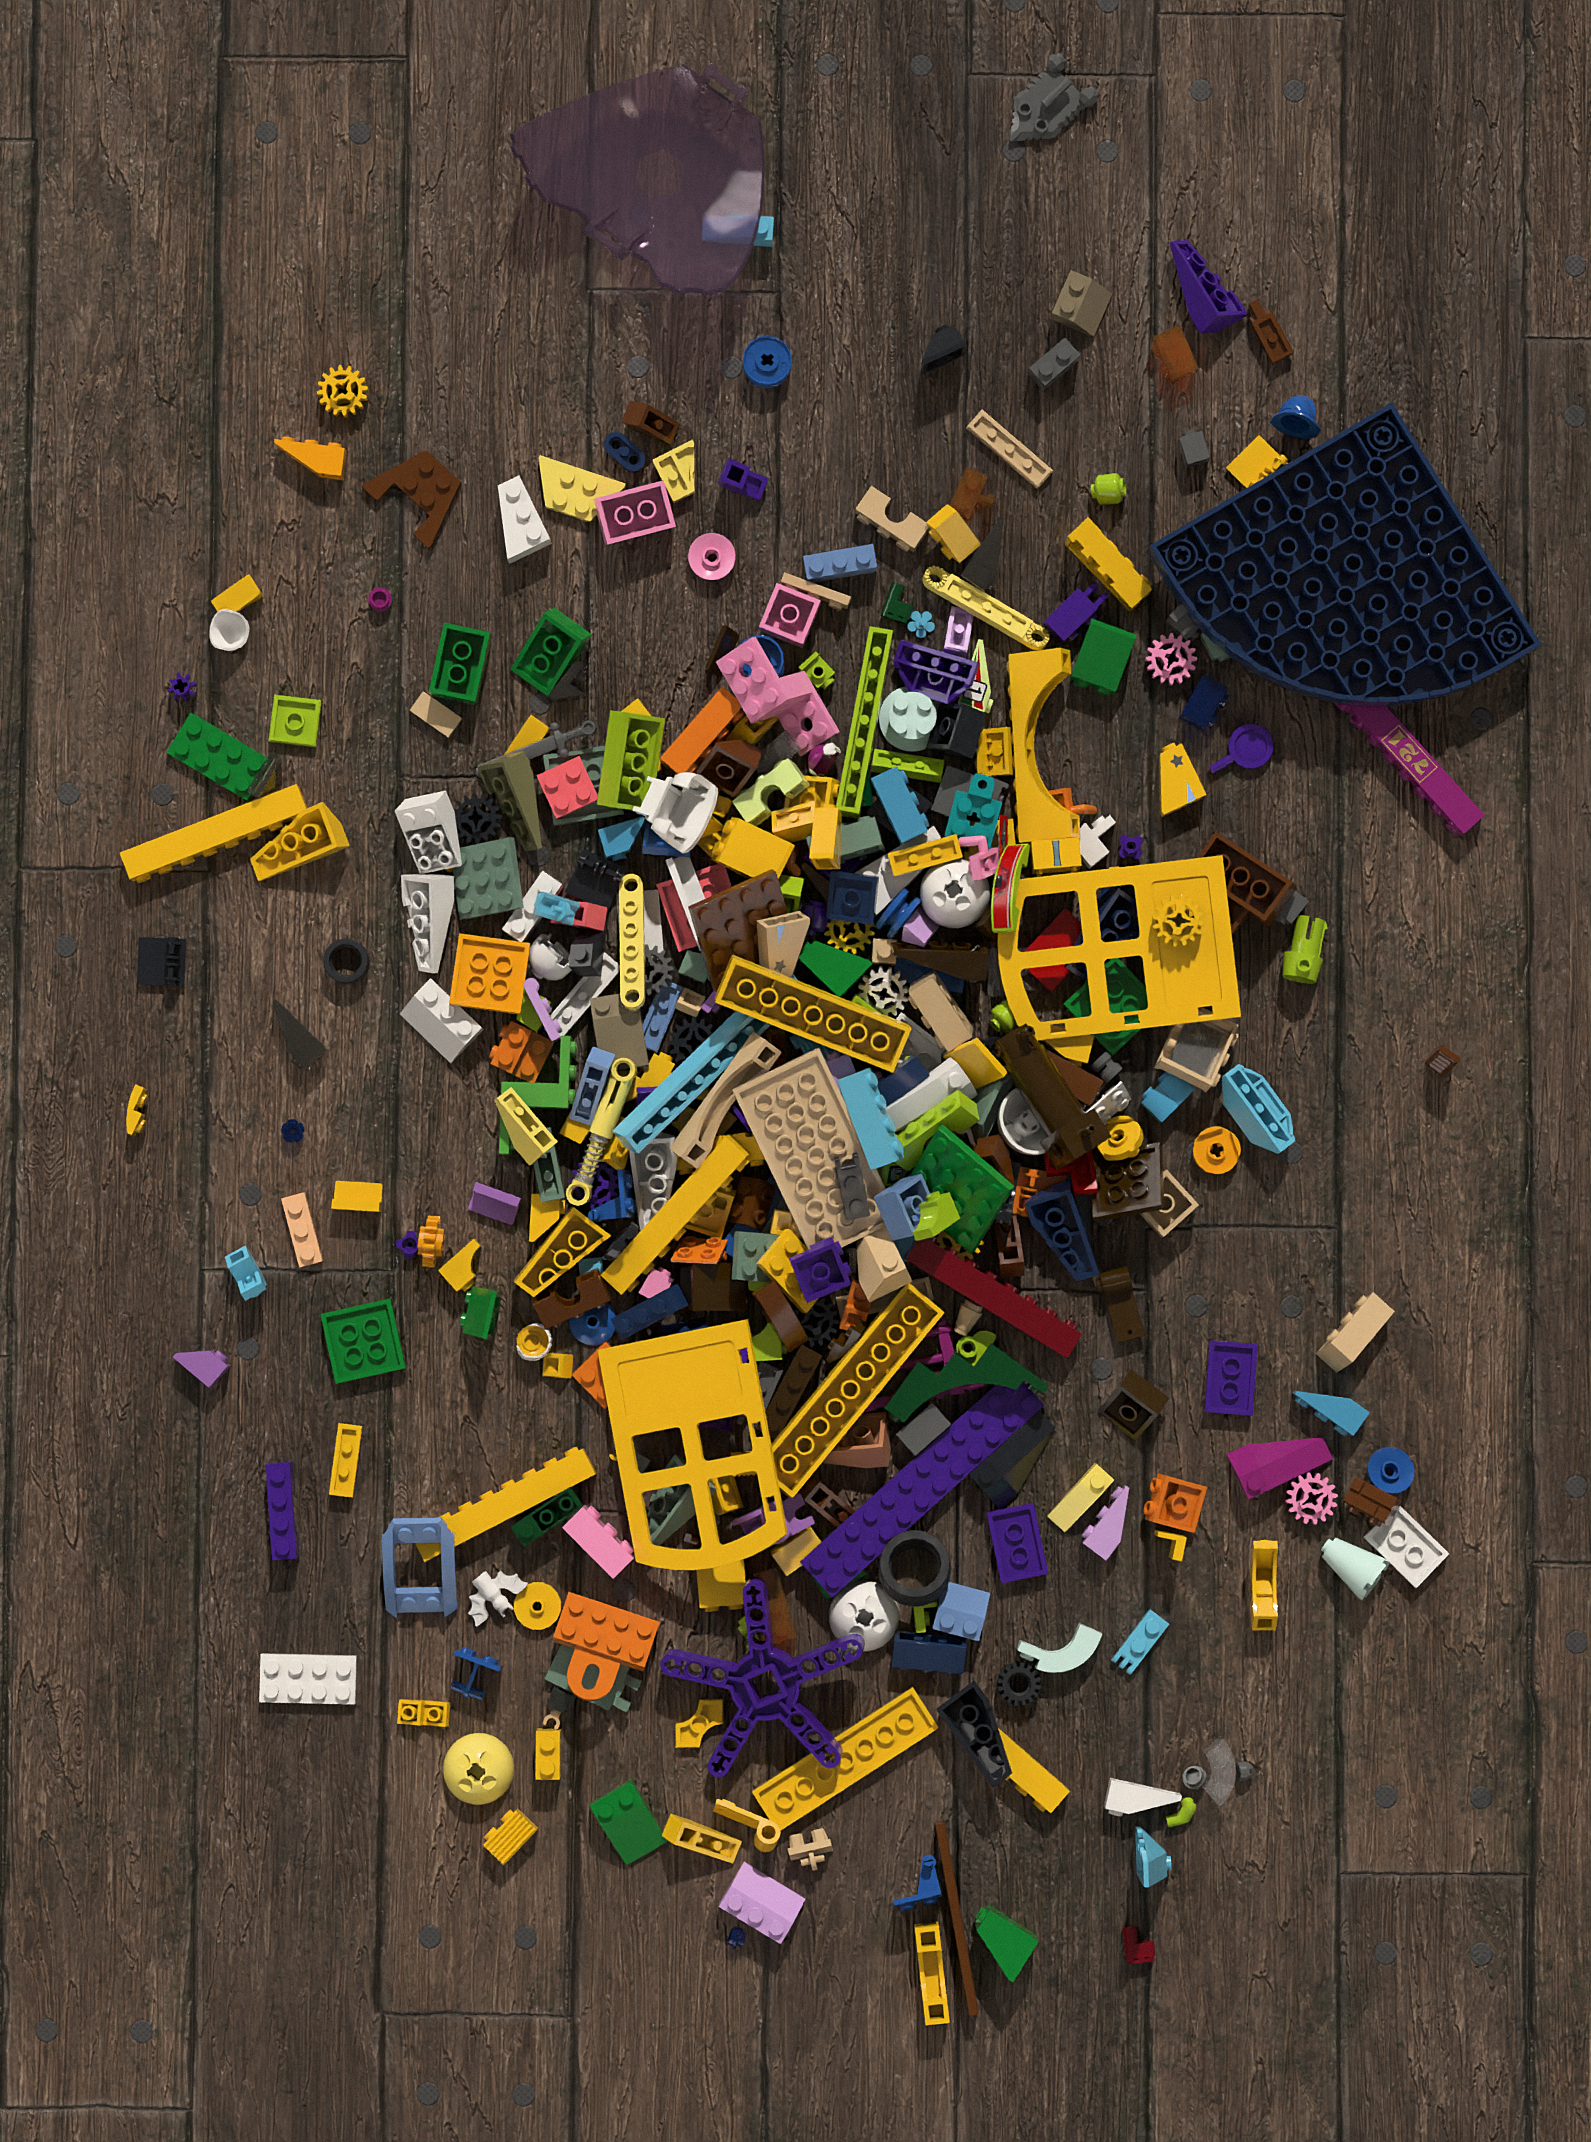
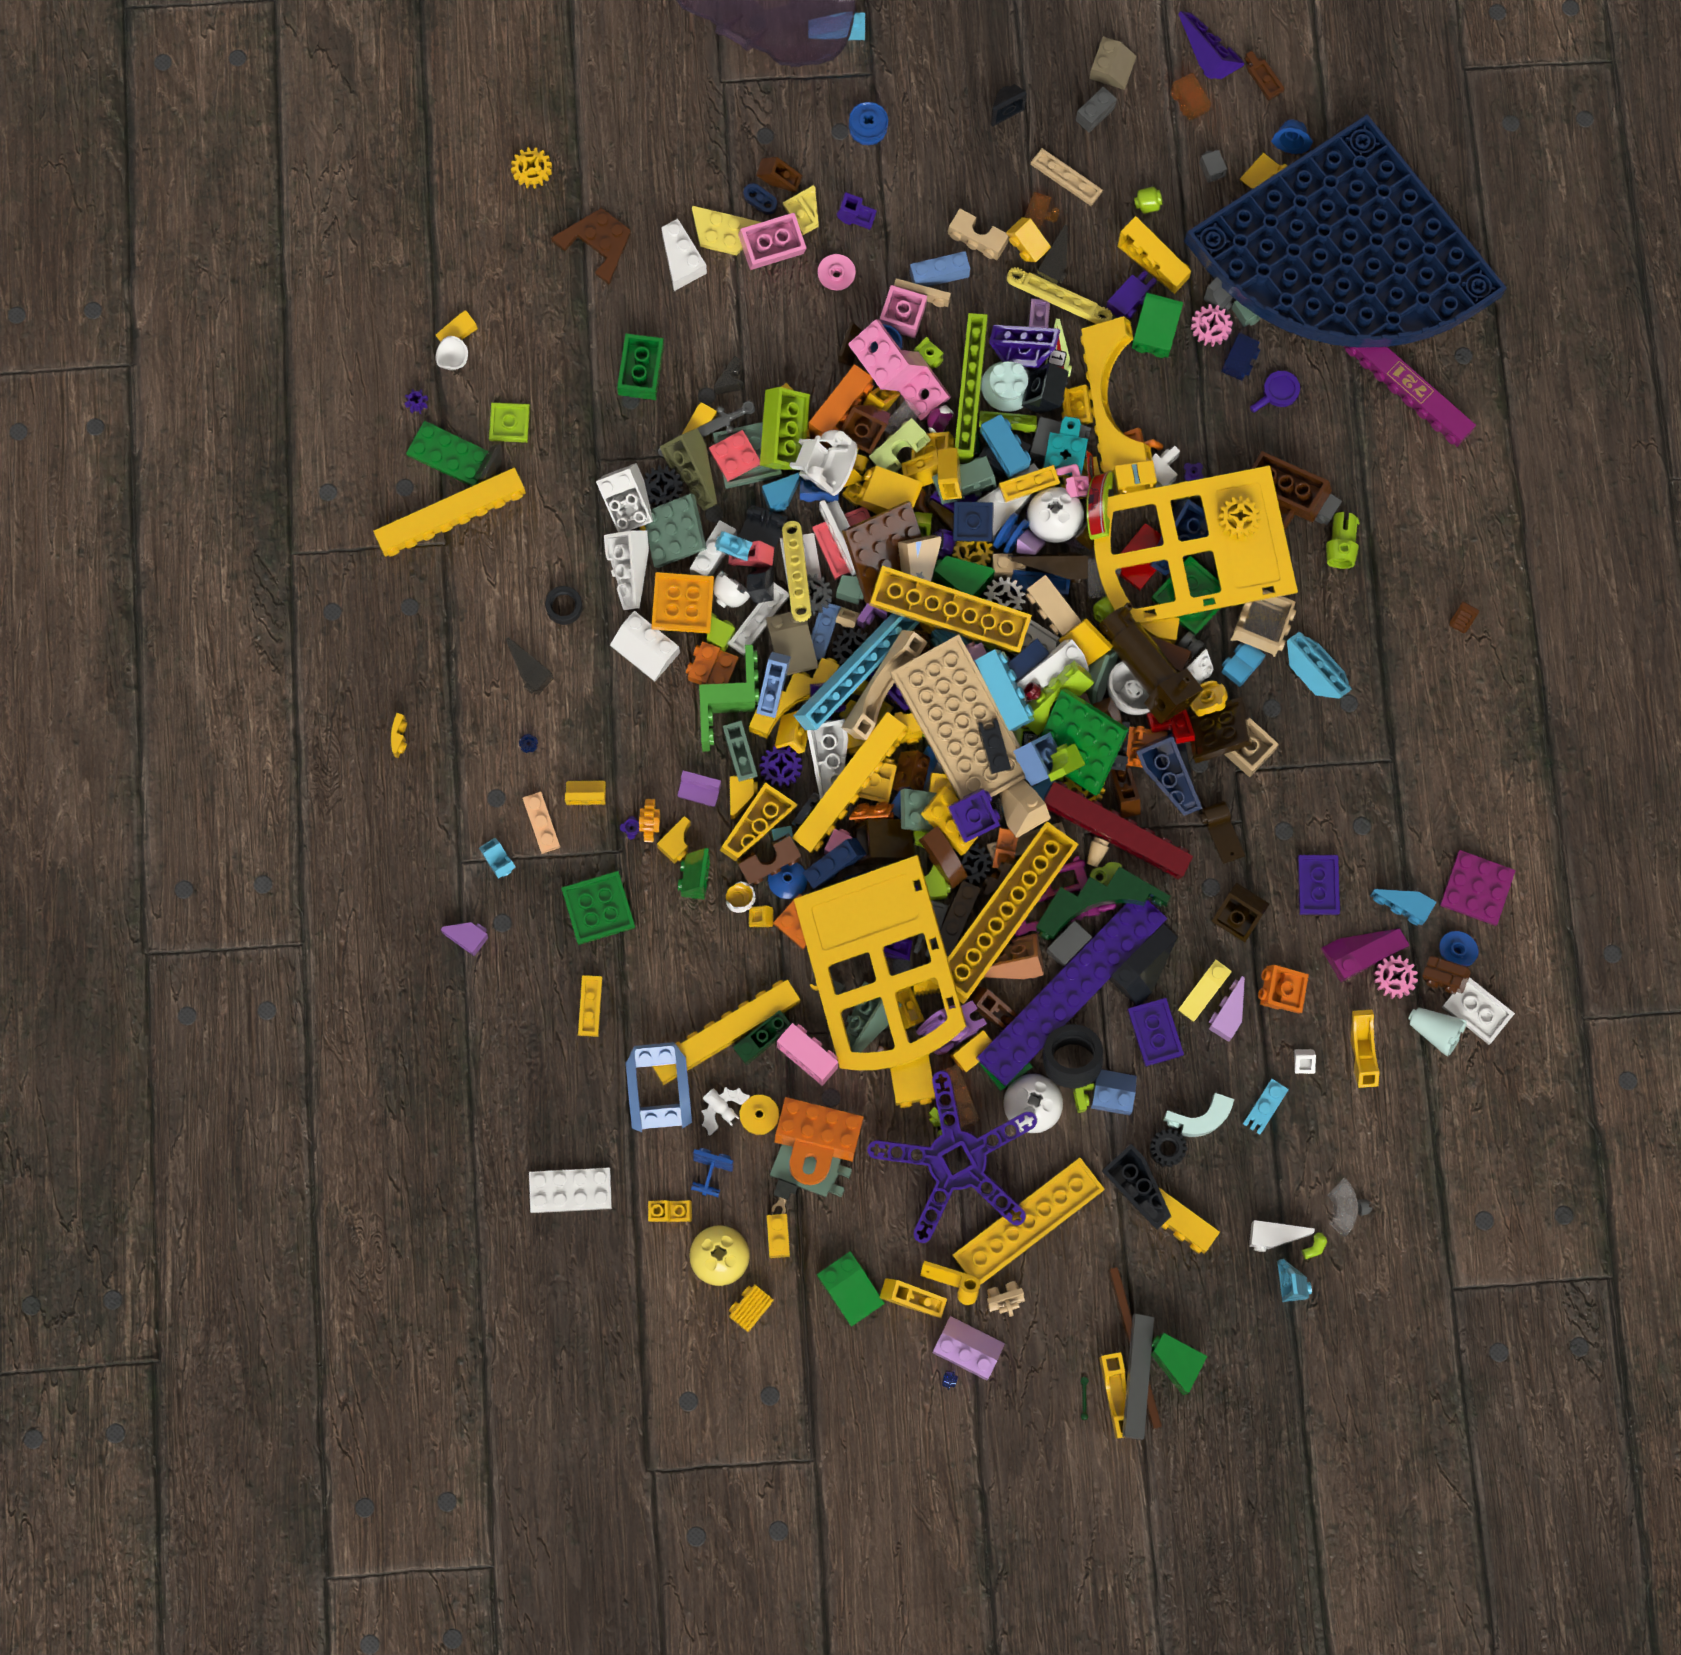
camera: 10 degrees left, 10 degrees down
(161, 961) = (412, 616): black hinge -> none
(281, 1510) = (539, 1050): dark purple arch -> none
(306, 839) = (524, 512): yellow wedge -> none
(320, 459) = (517, 220): light orange slope -> none
(380, 599) = (572, 324): magenta plate -> none
(435, 714) = (623, 409): tan tile -> none
(524, 1128) = (721, 719): light yellow slope -> none
(542, 1008) = (728, 626): lavender plate -> none
(550, 650) = (712, 352): green slope -> none
(602, 1129) = (784, 717): light yellow piece -> none
(620, 1207) = (804, 781): blue plate -> none
(707, 1715) = (896, 1210): yellow tile -> none
(894, 608) = (986, 303): dark green piece -> none
(894, 1951) = (1084, 1381): none -> dark green hinge
(904, 1121) = (1032, 691): none -> dark red plate
(921, 623) = (1008, 313): medium azure plant -> none
(928, 1888) = (1109, 1326): blue plate -> none
(929, 1652) = (1091, 1127): dark blue brick -> none
(956, 1956) = (1138, 1377): none -> dark grey tile
(1136, 1950) = (1288, 1365): dark red piece -> none
(1177, 780) = (1226, 417): yellow slope -> none
(1177, 1545) = (1289, 1019): yellow panel -> none
(1192, 1590) = (1304, 1060): none -> white slope
(1194, 1777) = (1322, 1215): dark grey plate -> none
(1220, 1137) = (1291, 694): light orange plate -> none
(1355, 1332) = (1416, 840): tan wedge -> none
(1422, 1394) = (1477, 888): none -> magenta plate

